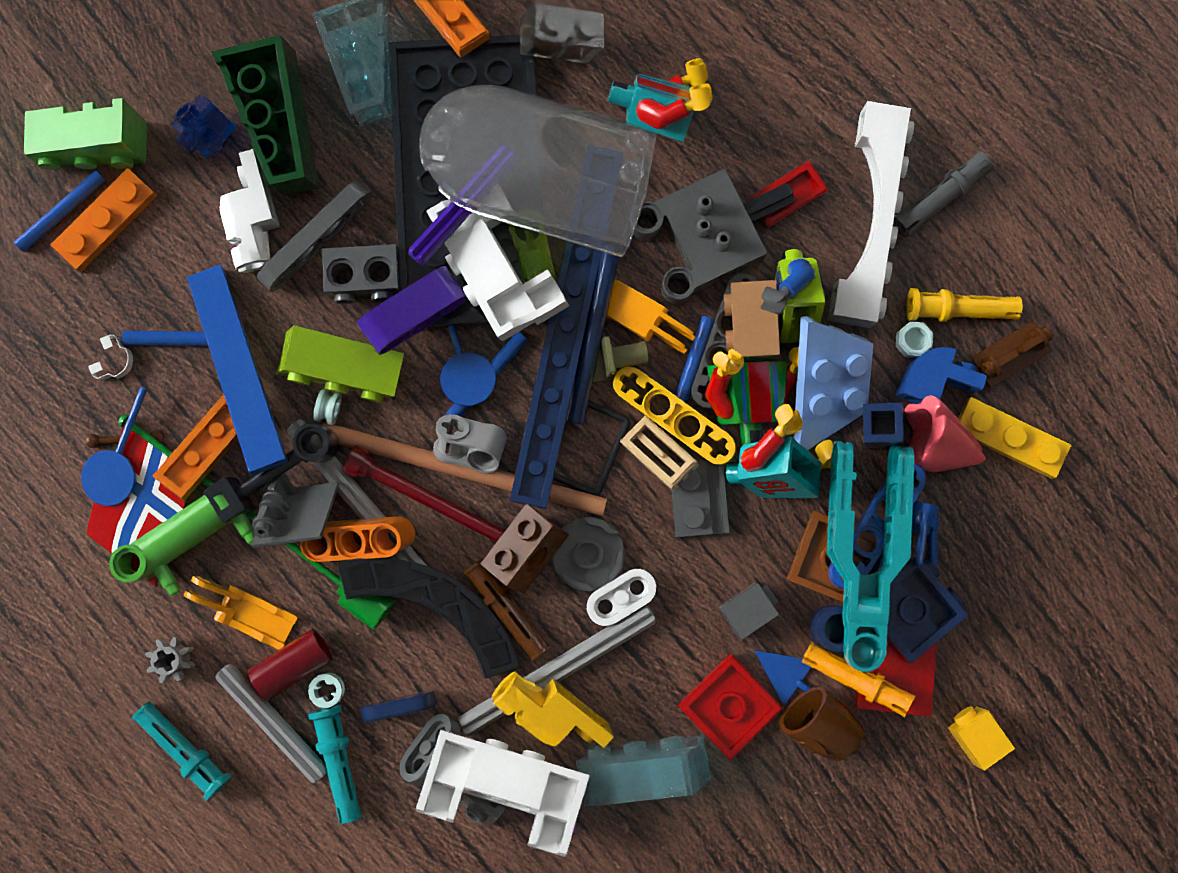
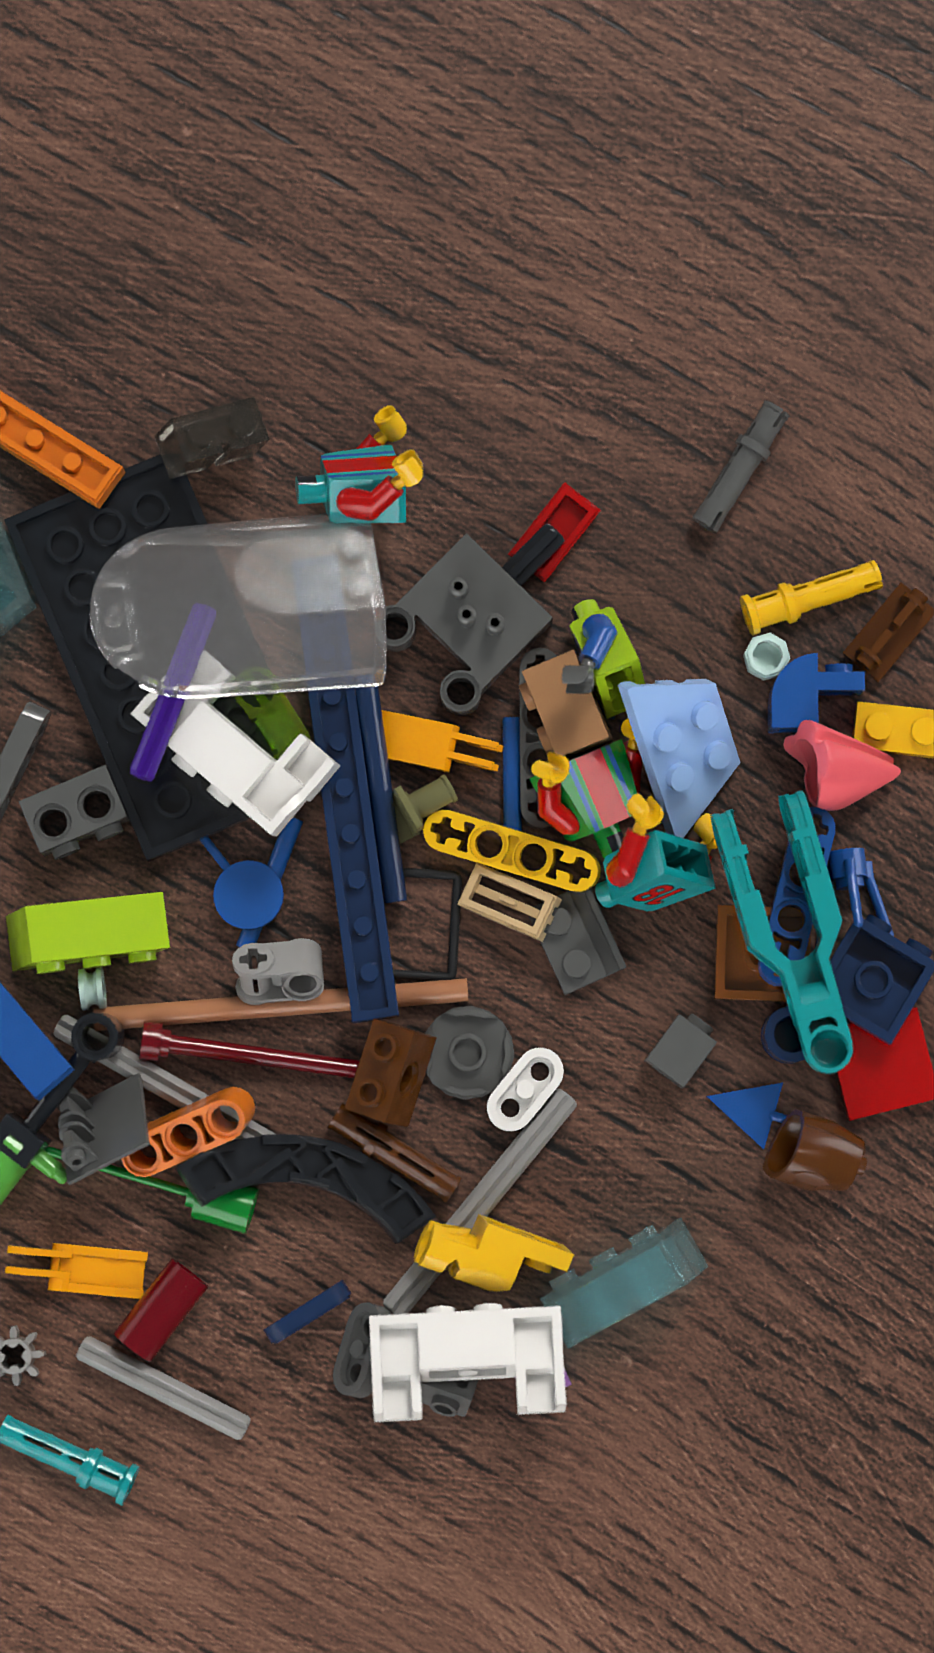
camera: 20 degrees left, 0 degrees up
(323, 701) = (214, 1340): light aqua bush -> none
(333, 746) = (246, 1387): teal pin -> none
(412, 310) = (155, 837): dark purple beam -> none
(730, 706) = (700, 1173): red tile -> none
(866, 683) = (847, 1086): light orange pin -> none
(882, 136) = (642, 422): white arch -> none
(883, 425) = (761, 776): dark blue brick -> none

